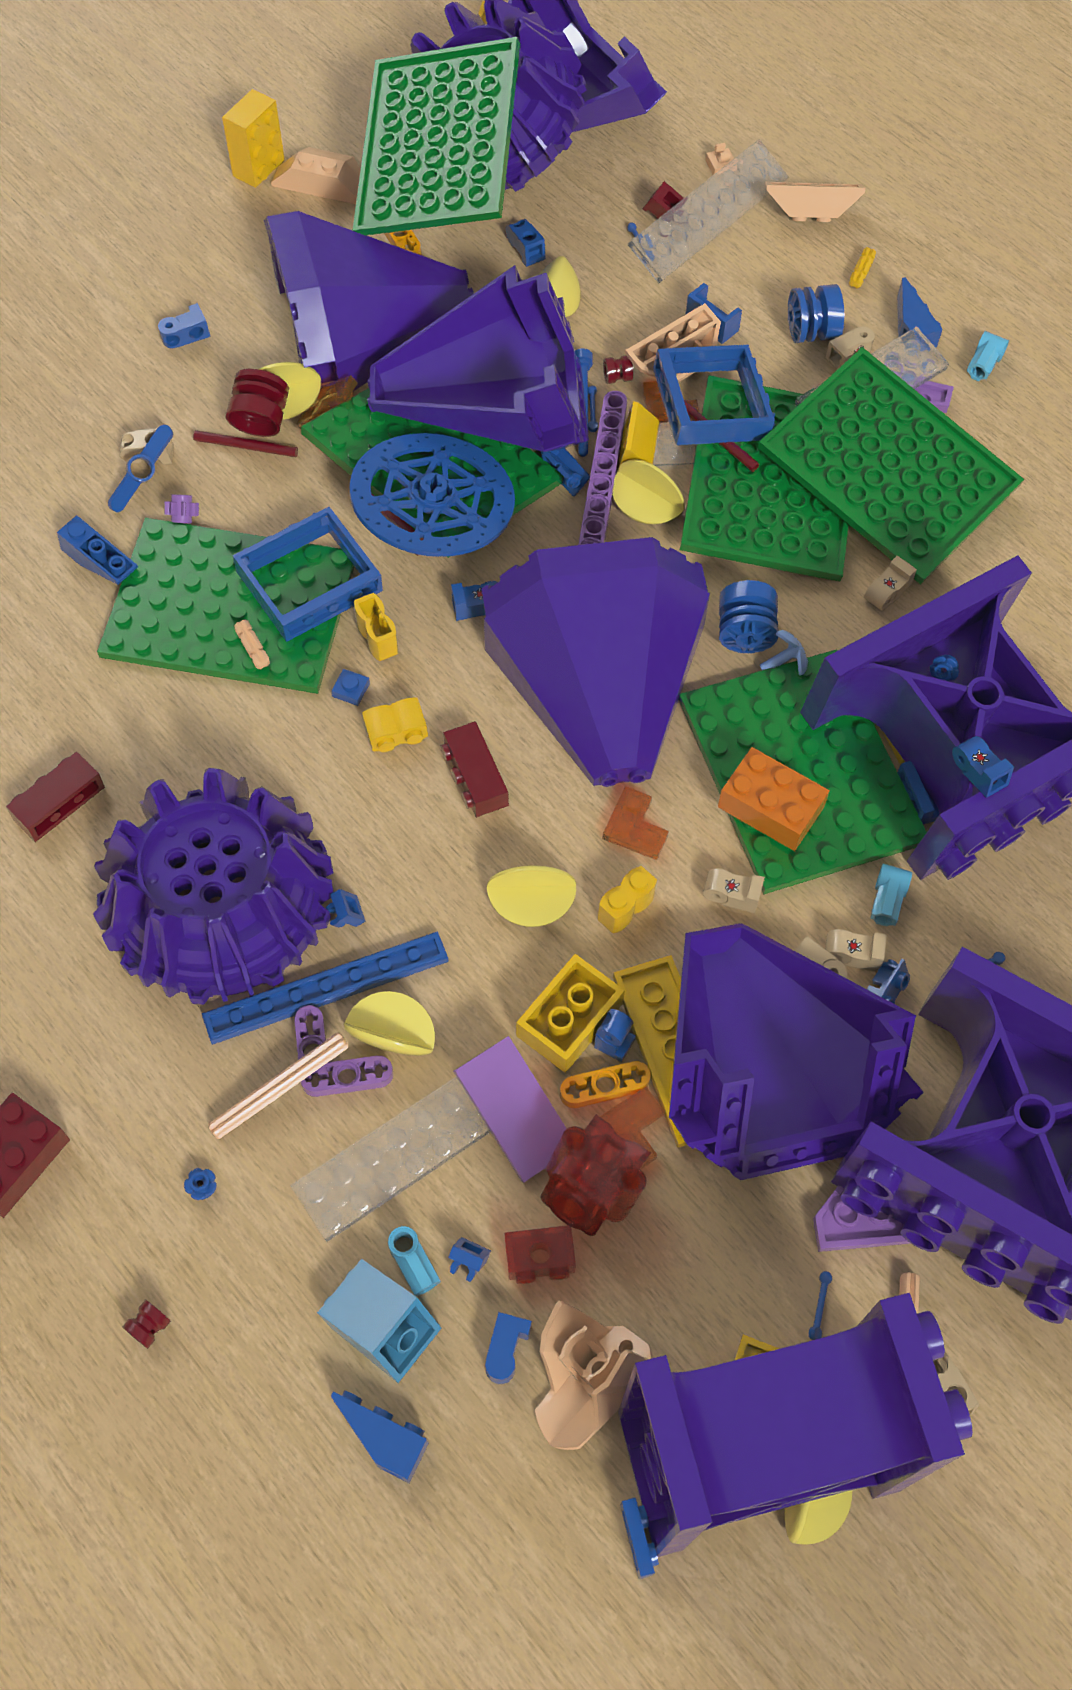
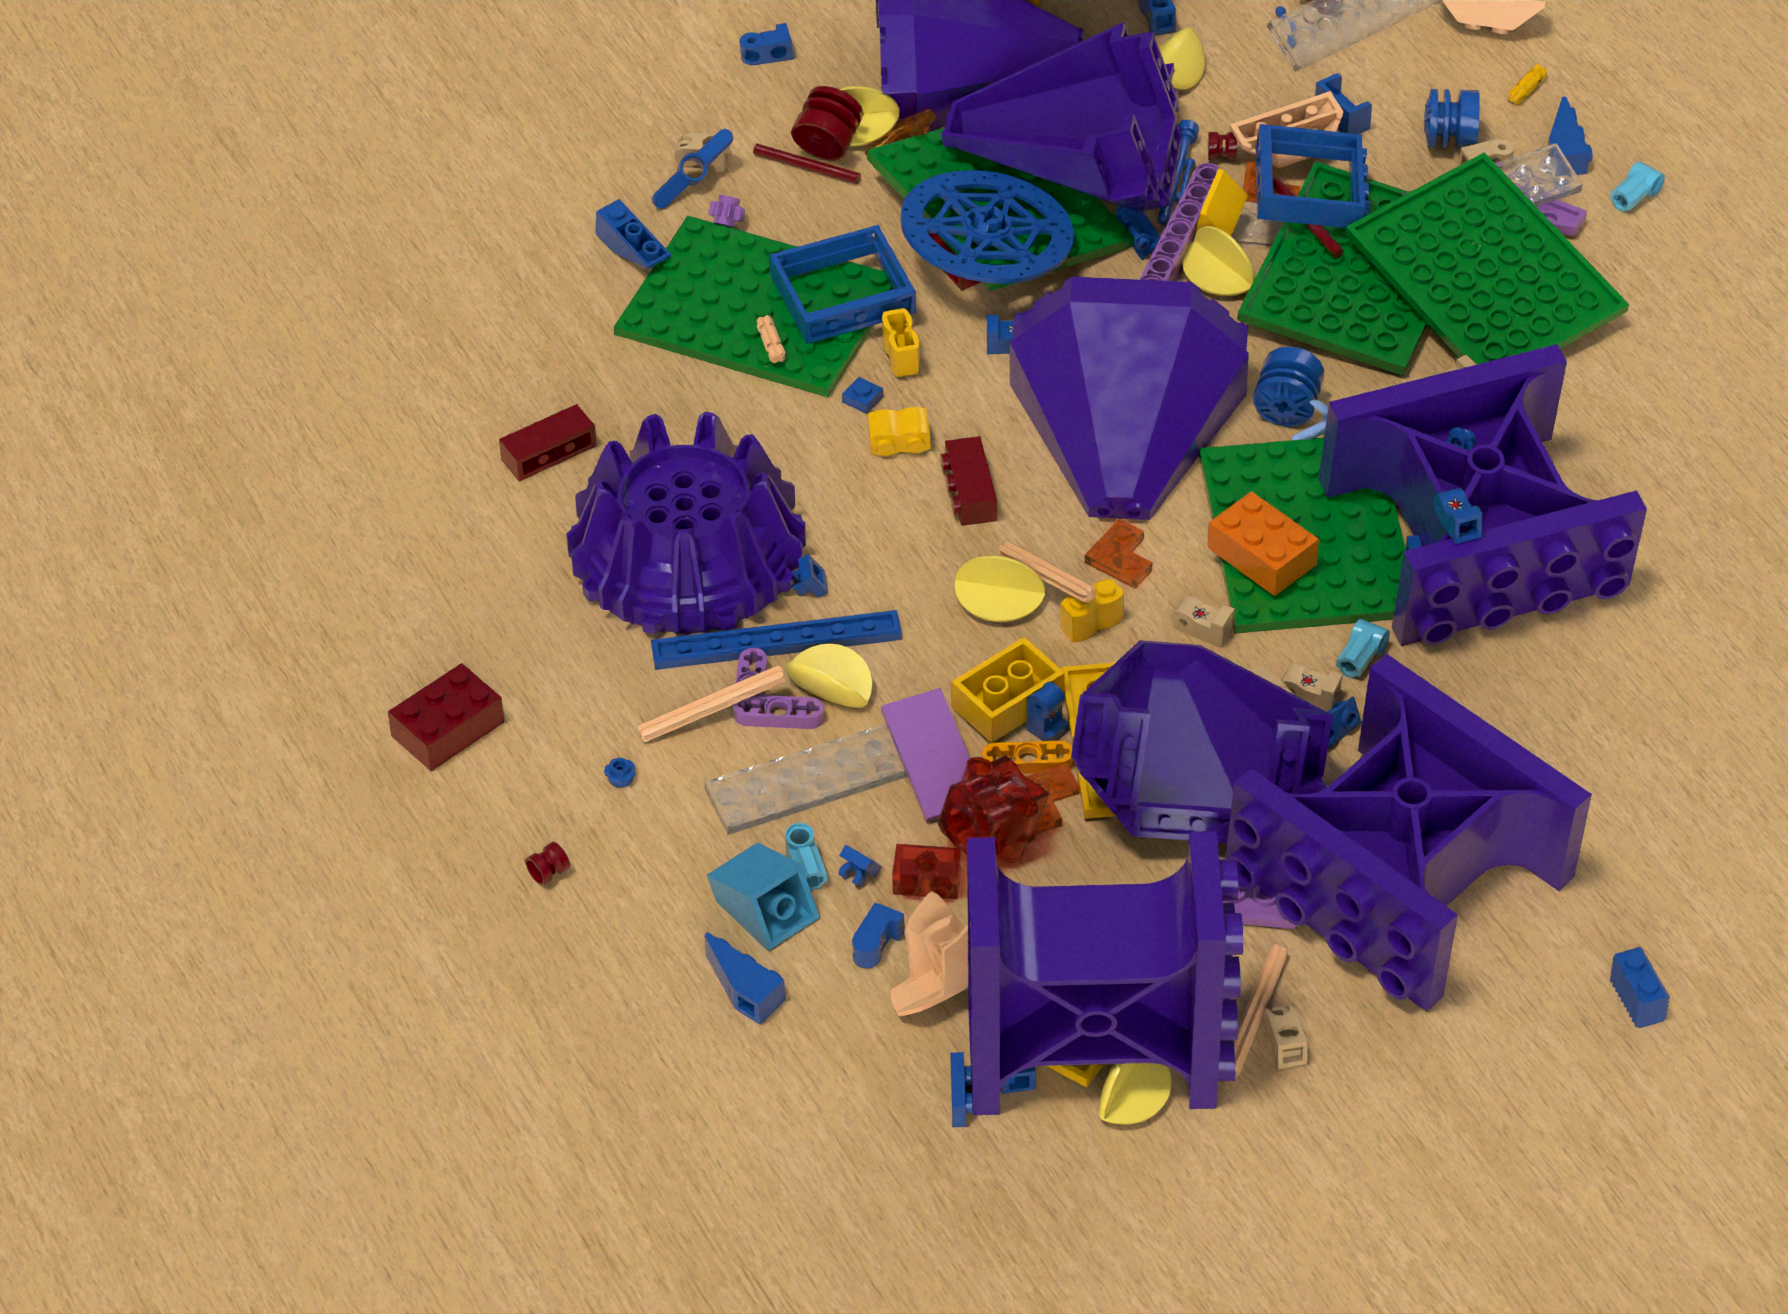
camera: 15 degrees right, 15 degrees down
(578, 869) = (1050, 572): none -> light nougat axle

